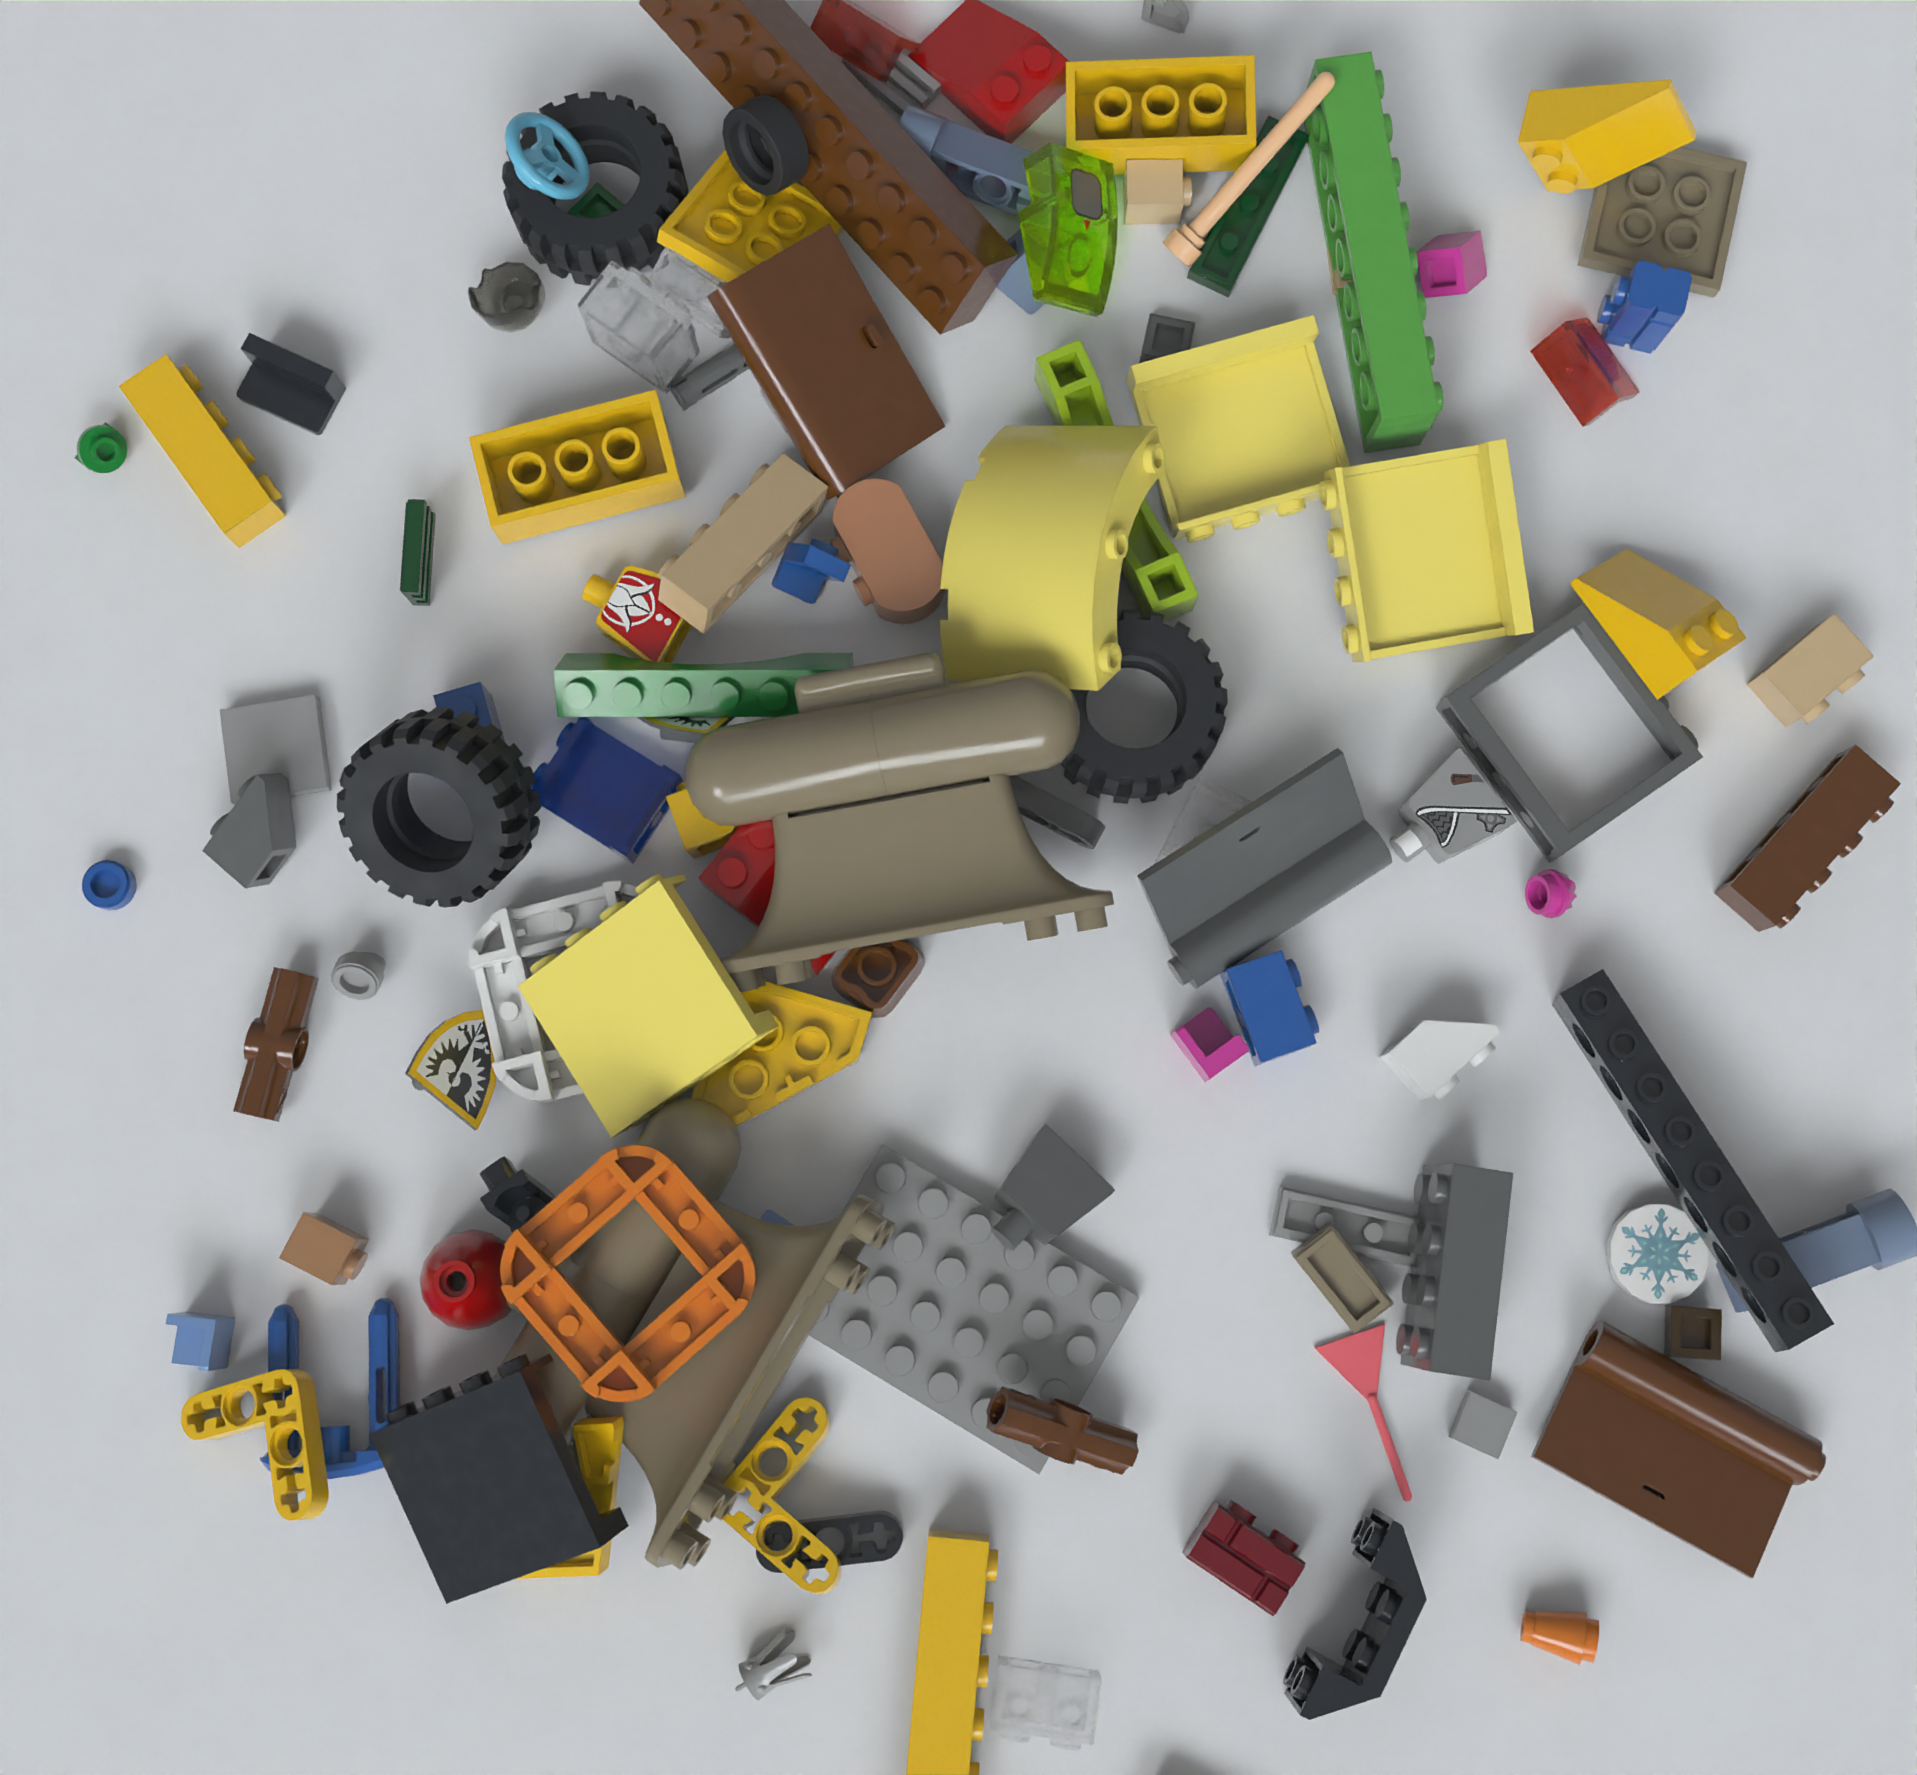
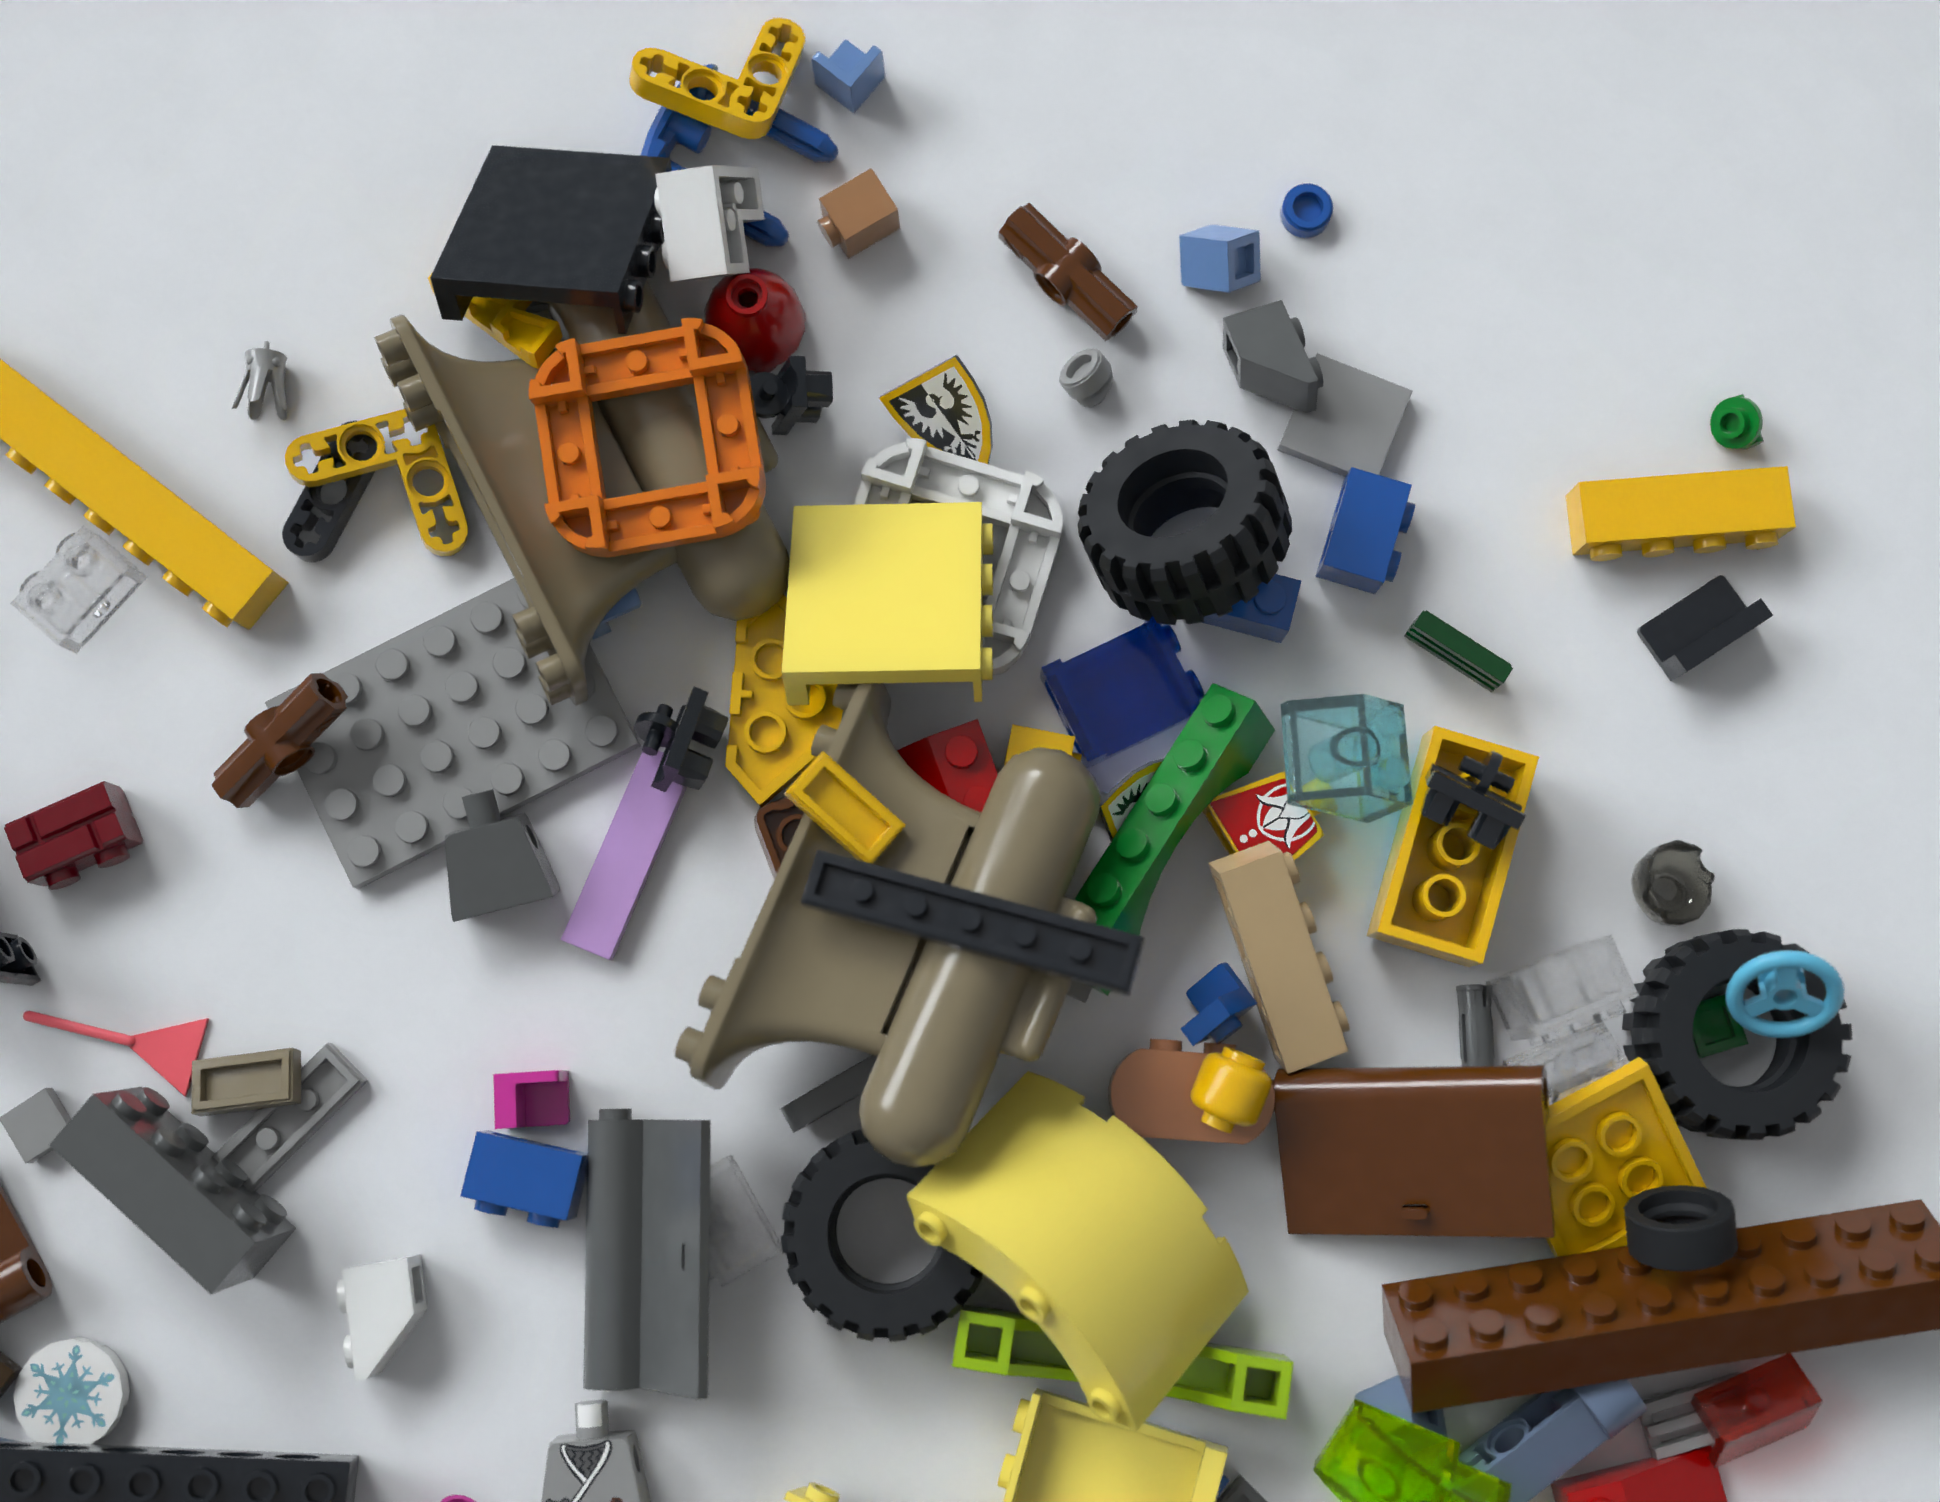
camera: 125 degrees right, 0 degrees up
(192, 927) = (1220, 258): none -> medium blue panel
(360, 678) = (1365, 531): none -> blue brick
(409, 1359) = (705, 219): none -> white brick
(533, 440) = (1494, 812): none -> black hips
(554, 580) = (1346, 756): none -> clear light blue slope
(835, 917) = (844, 809): none -> yellow tile
(860, 1112) = (678, 761): none -> black hips
(862, 756) = (973, 922): none -> black tile
(866, 513) = (1231, 1089): none -> yellow head
(973, 1095) = (623, 862): none -> lavender tile

